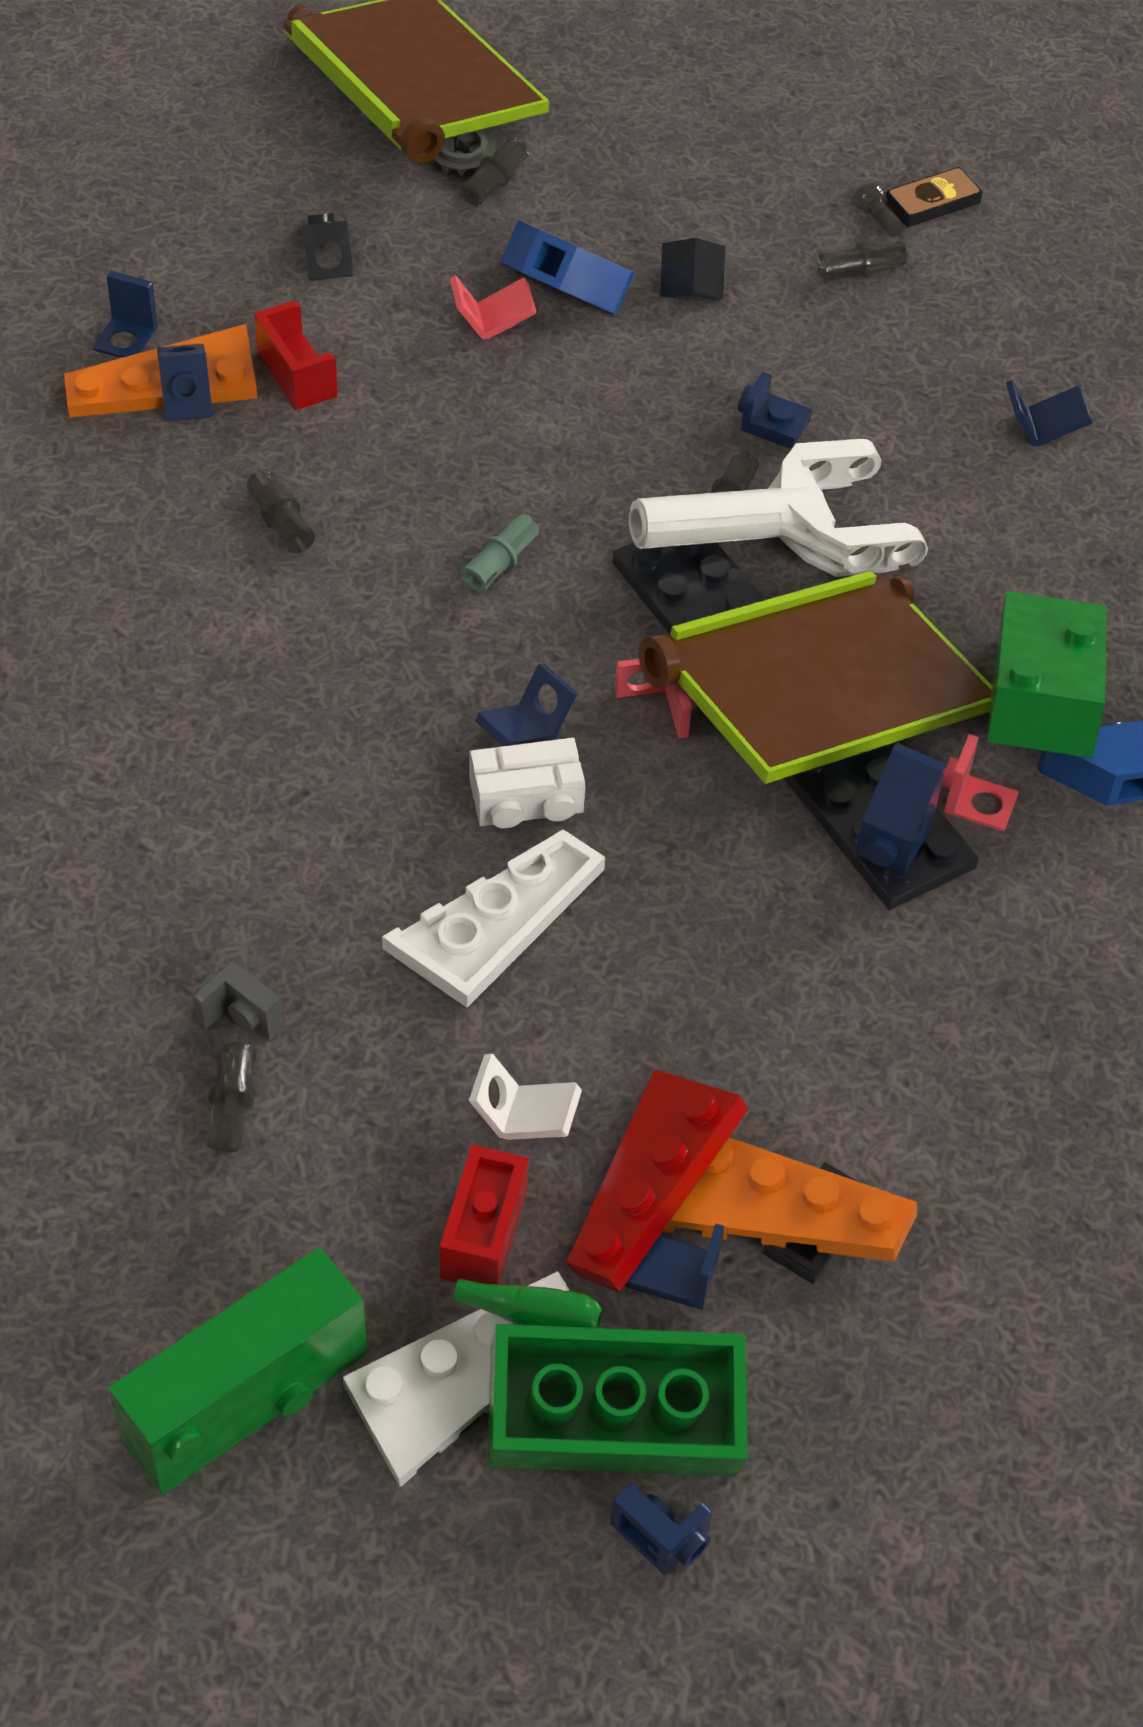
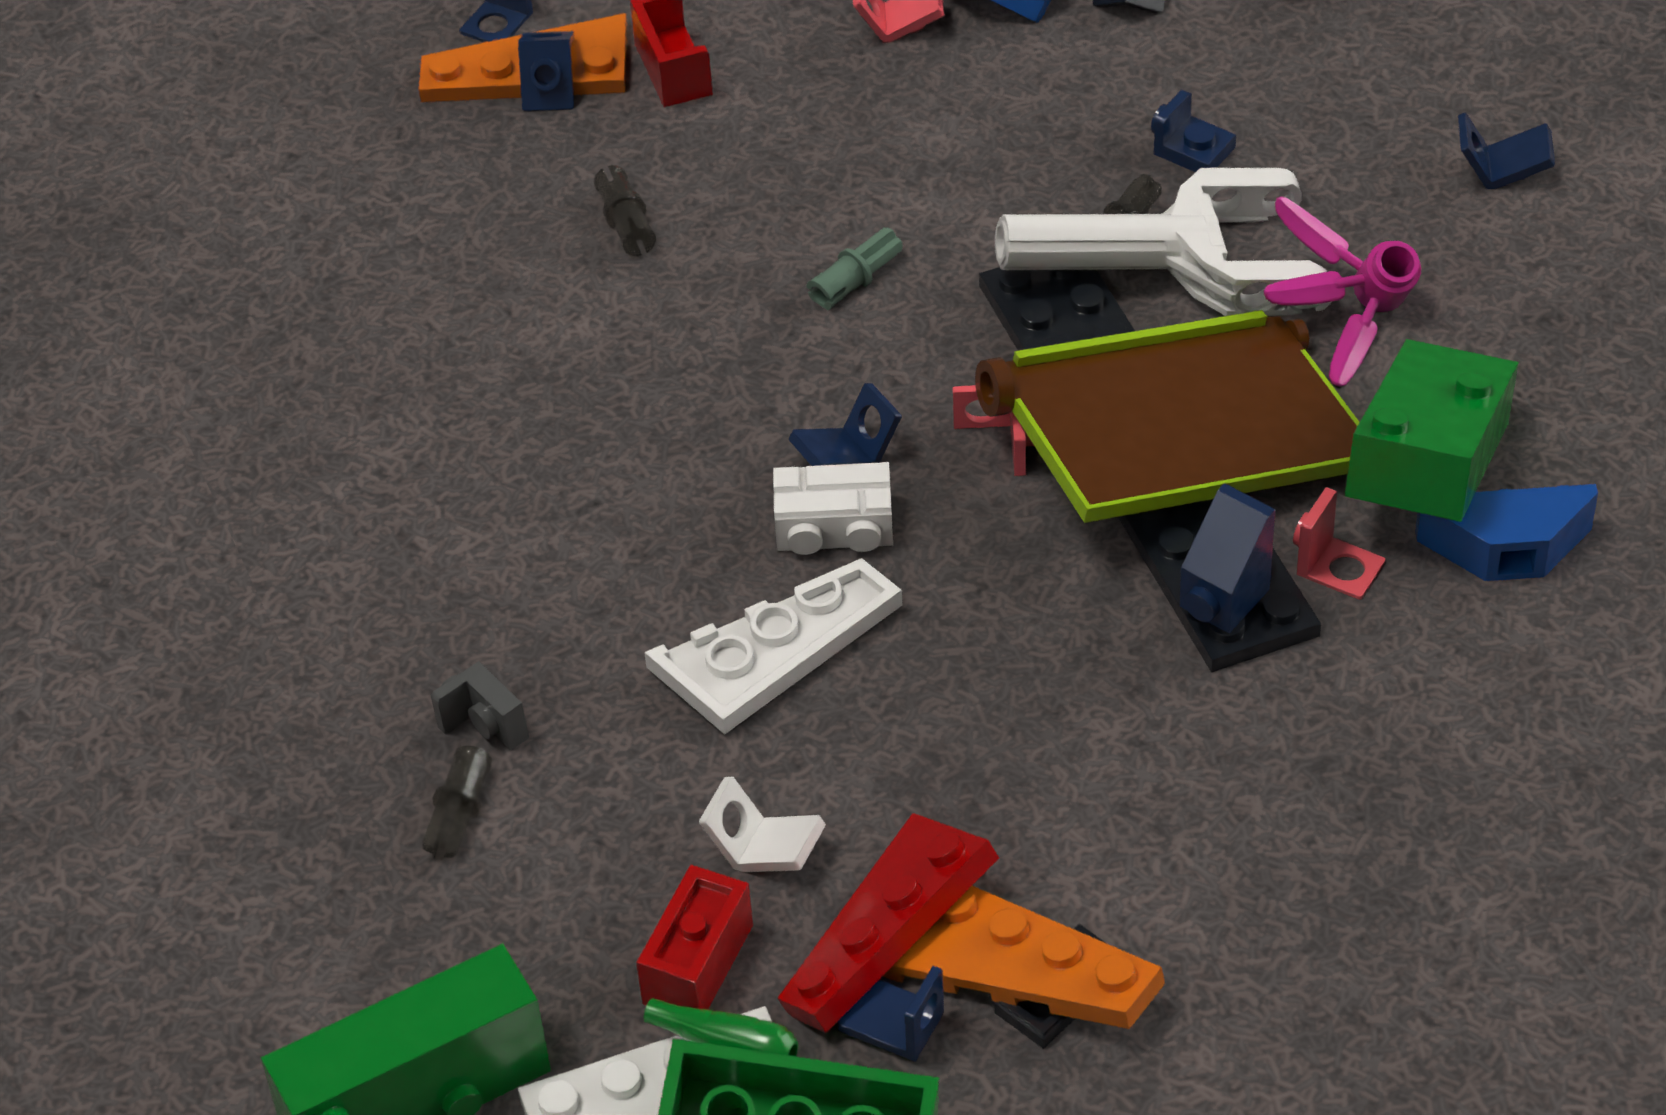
camera: 15 degrees right, 5 degrees down
(963, 538) = (1379, 284): none -> dark pink plant

